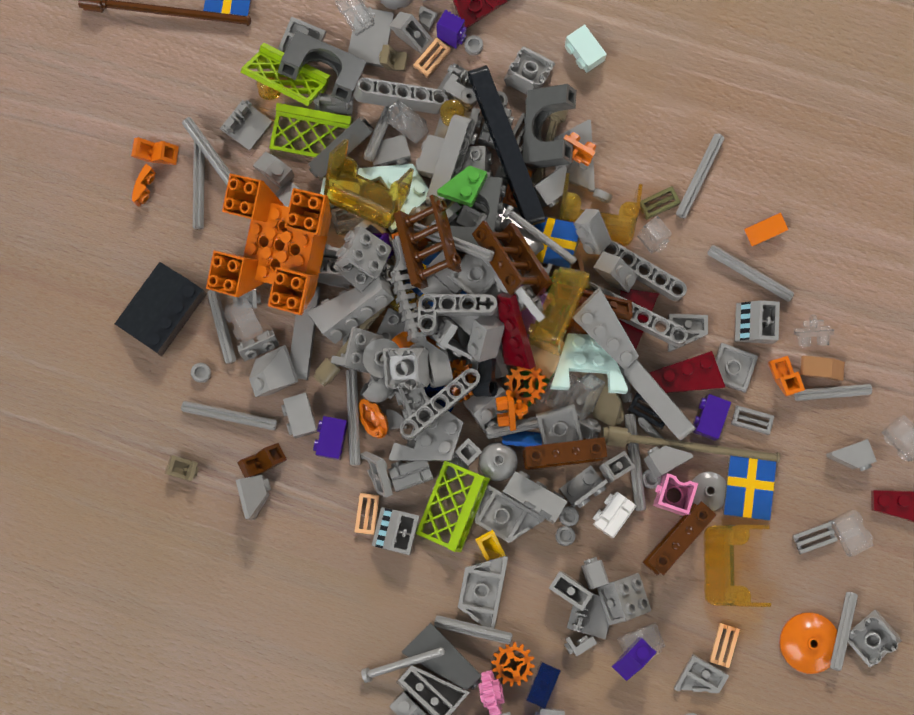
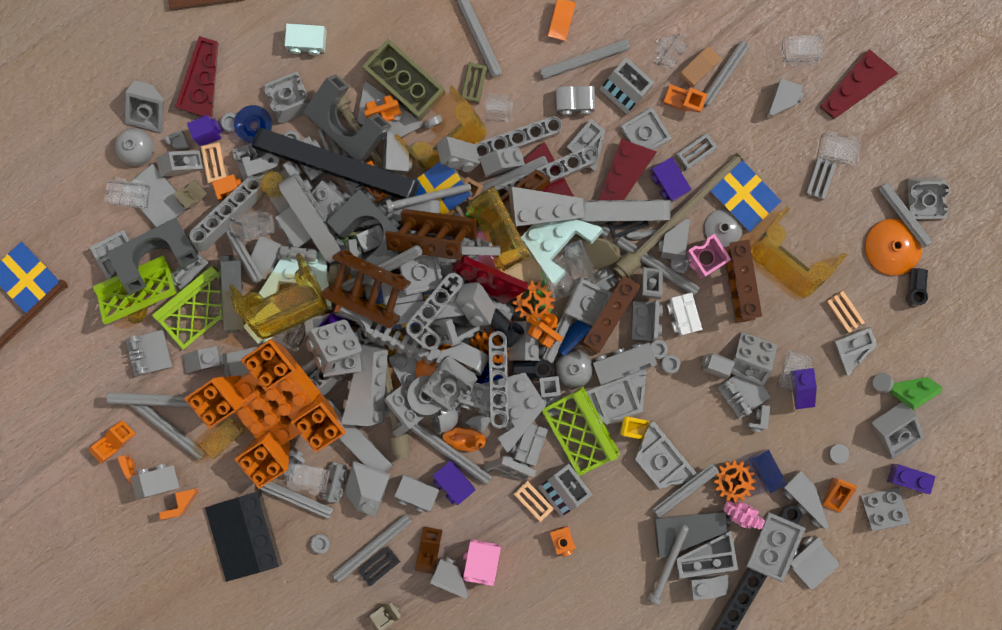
camera: 50 degrees left, 5 degrees up
(149, 206) = (154, 482): none -> light grey brick
(151, 241) = (183, 500): none -> orange slope
(202, 429) = (366, 576): none -> black tile
(223, 231) = (222, 438): none -> clear yellow brick
(285, 510) = (481, 562): none -> bright pink piece
(360, 559) = (559, 534): none -> orange brick
(421, 78) = (225, 186): none -> orange brick
(421, 184) = (285, 251): none -> light grey axle
(464, 186) = (342, 223): bright green wing -> none
(471, 427) = (531, 369): none -> black piece
(490, 54) = (246, 117): none -> clear blue dish
(571, 590) = (716, 393): light grey slope -> none
(616, 147) = (404, 80): none -> olive brick
(619, 291) = (537, 163): none -> light grey axle
(712, 291) = (575, 99): none -> light grey brick
(795, 687) = (917, 285): none -> black piece

